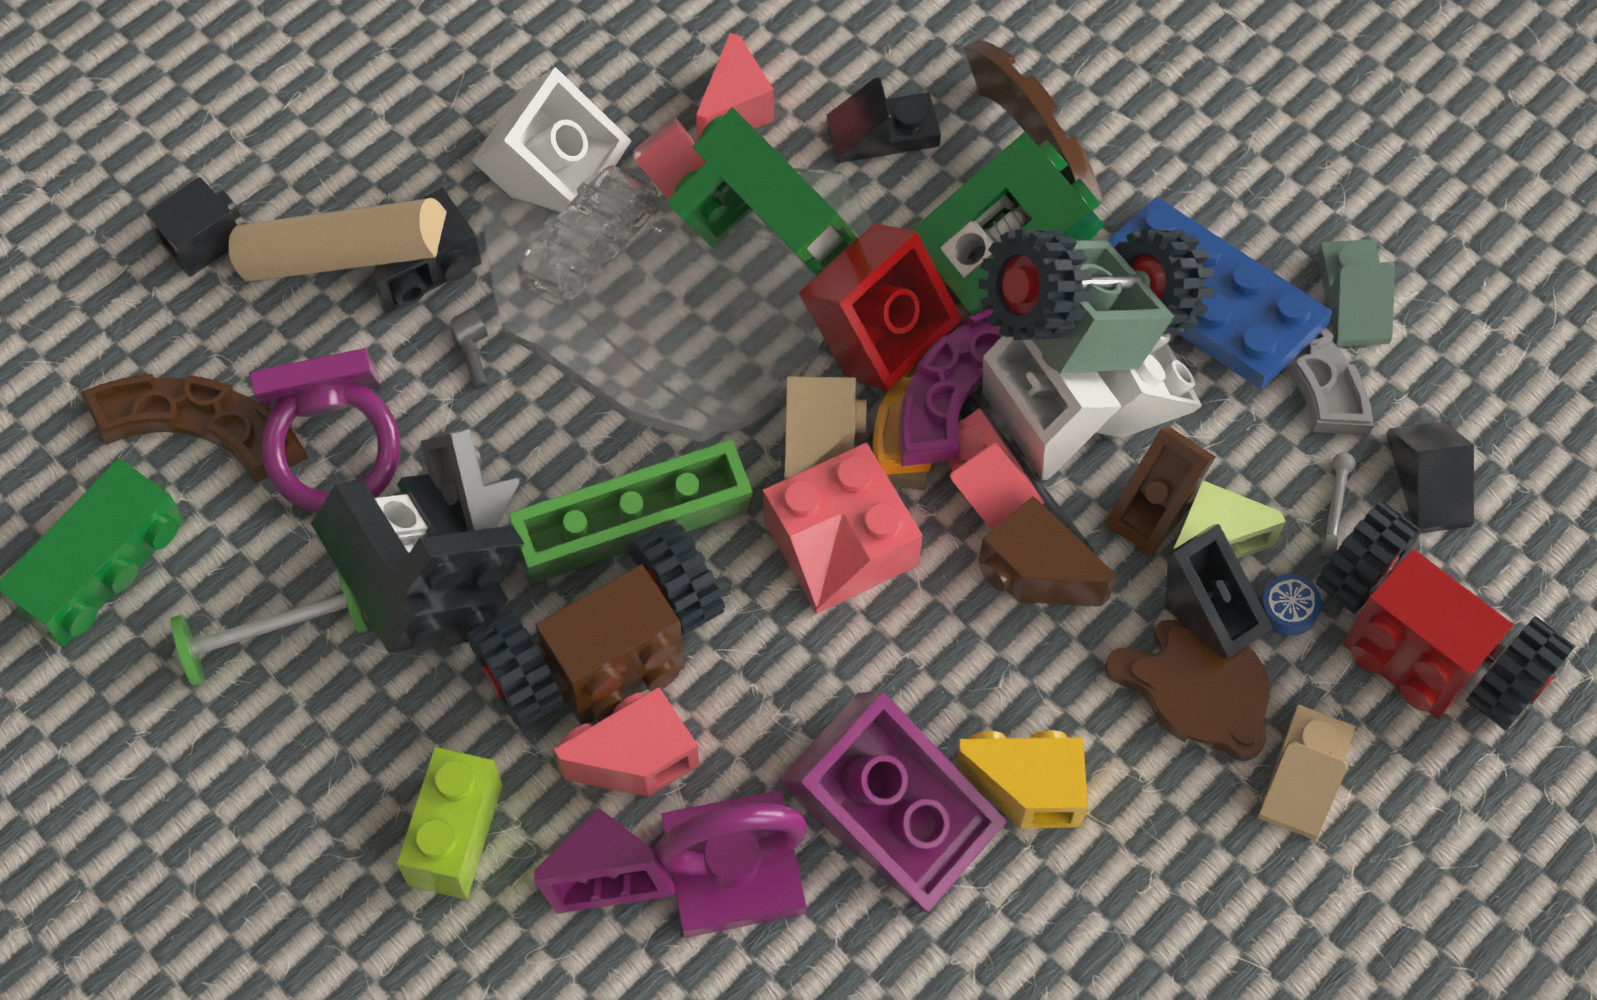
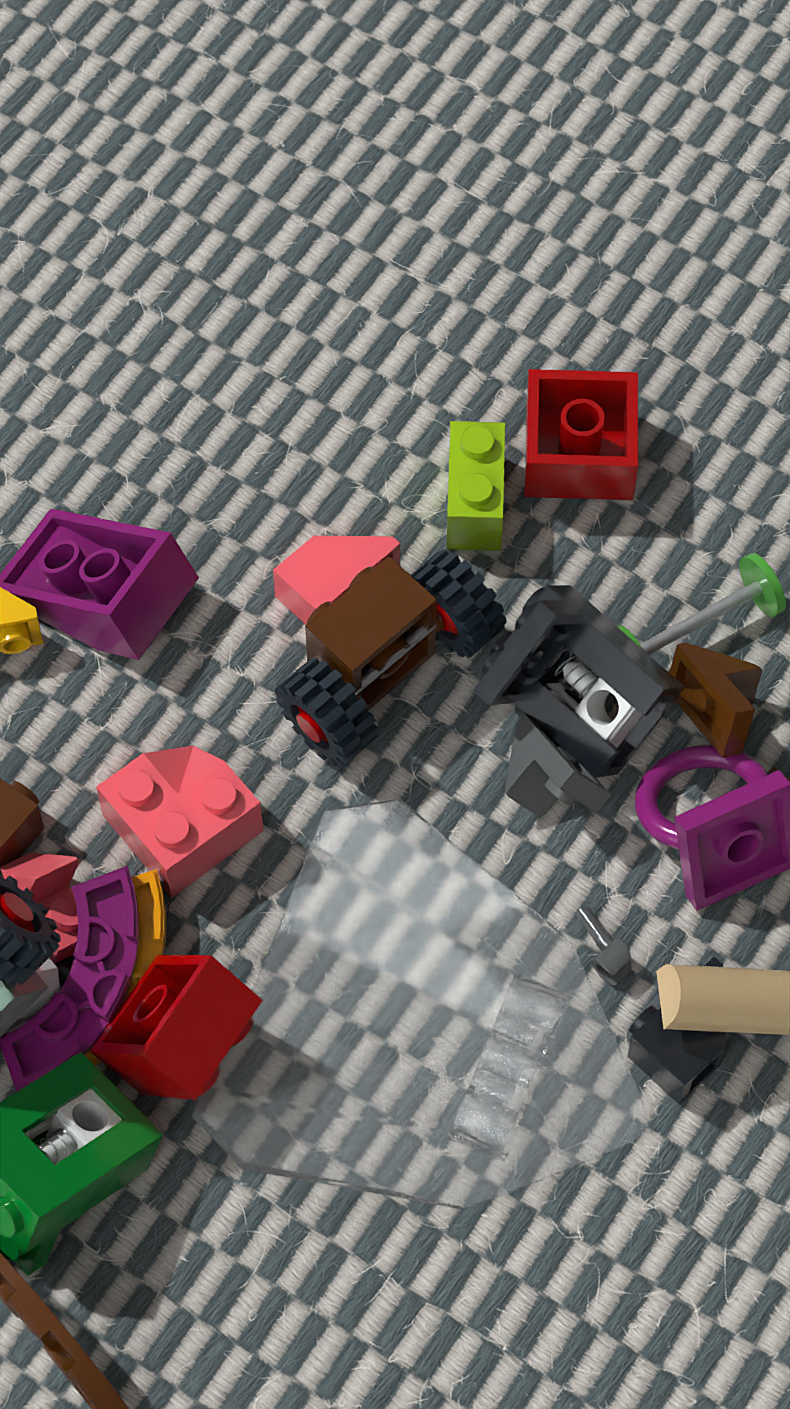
camera: 170 degrees right, 0 degrees up
(289, 545) = (717, 695): none -> reddish brown slope
(314, 853) = (581, 434): none -> red brick
(550, 143) = (585, 1179): white slope -> none
(601, 868) = (328, 475): magenta slope -> none
(611, 514) = (404, 761): bright green brick -> none
(668, 156) = (439, 1169): coral slope -> none
(734, 862) = (228, 505): magenta tile -> none
(737, 84) = (392, 1300): coral slope -> none
(749, 176) = (311, 1090): green brick -> none
(820, 420) = (222, 907): tan slope -> none
(877, 126) = (216, 1311): black slope -> none

